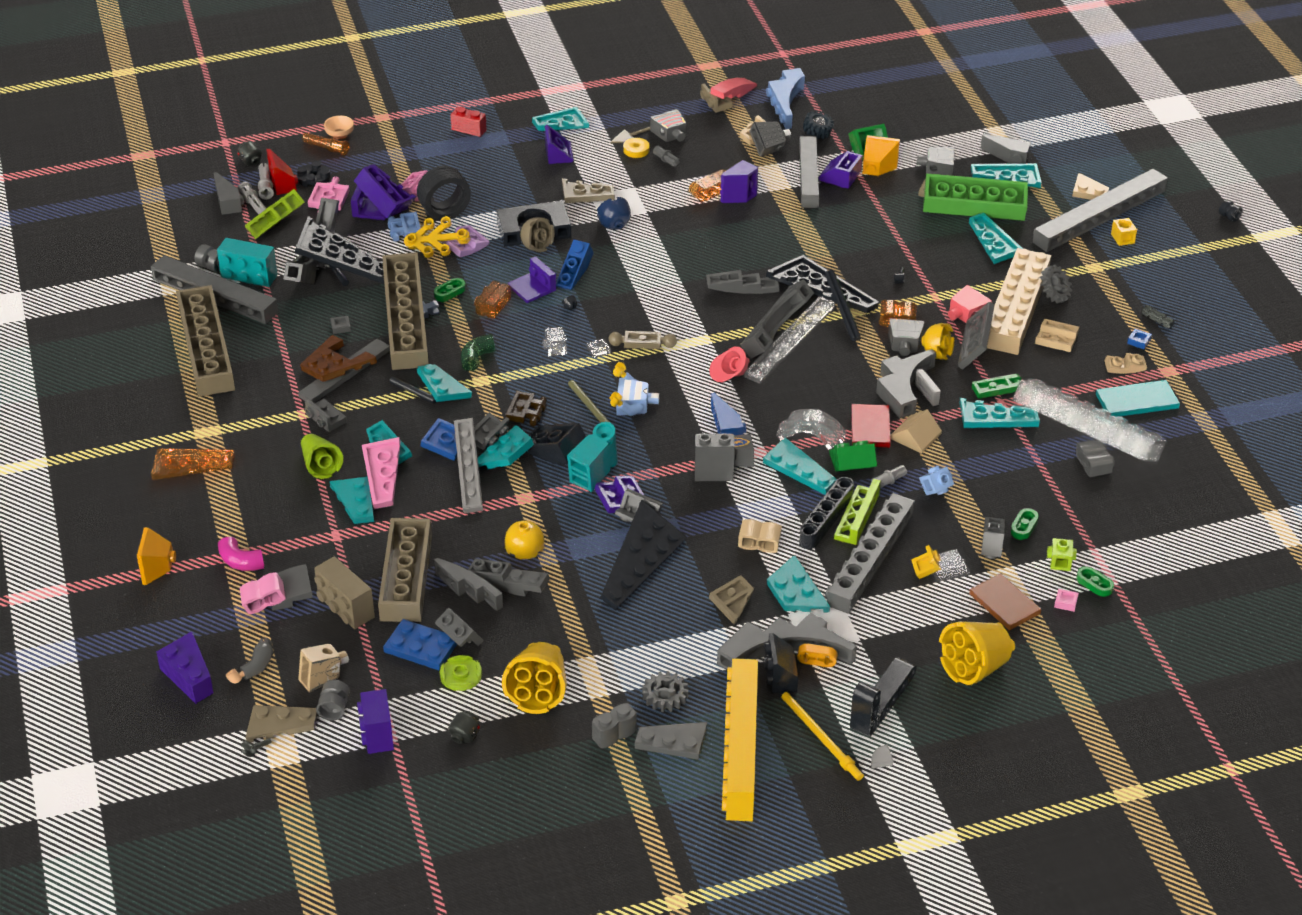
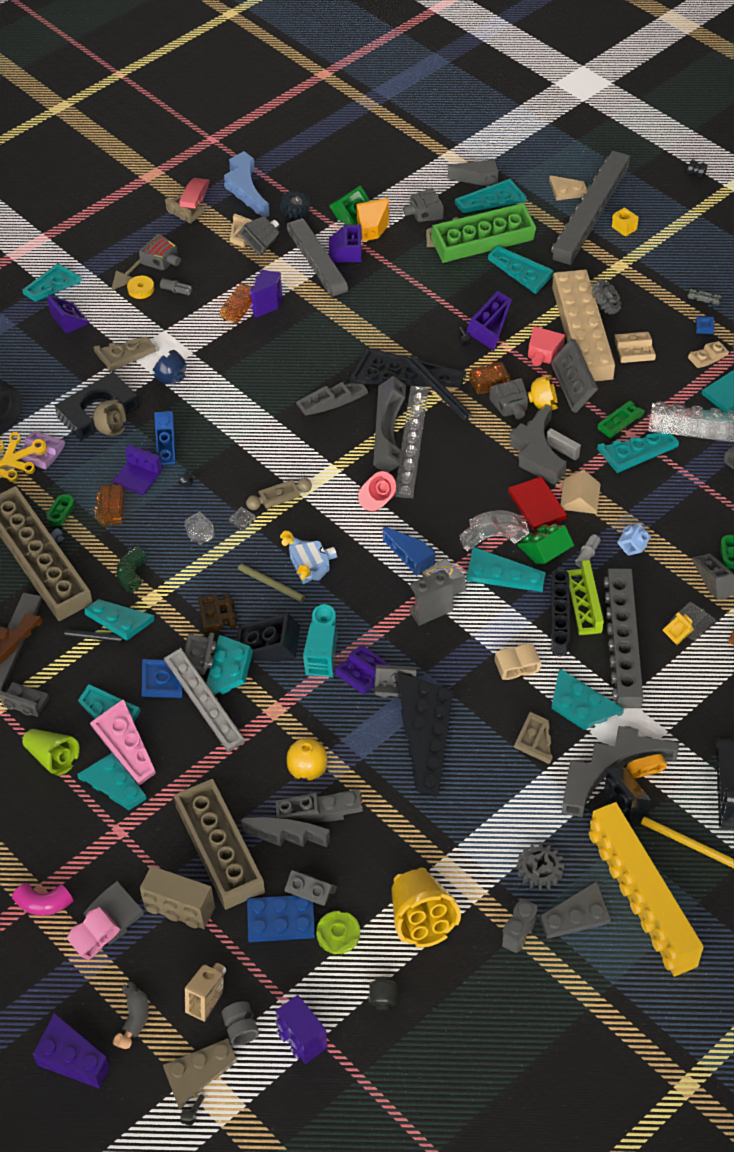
camera: 25 degrees left, 10 degrees up
(931, 268) = (489, 320): none -> dark purple wedge

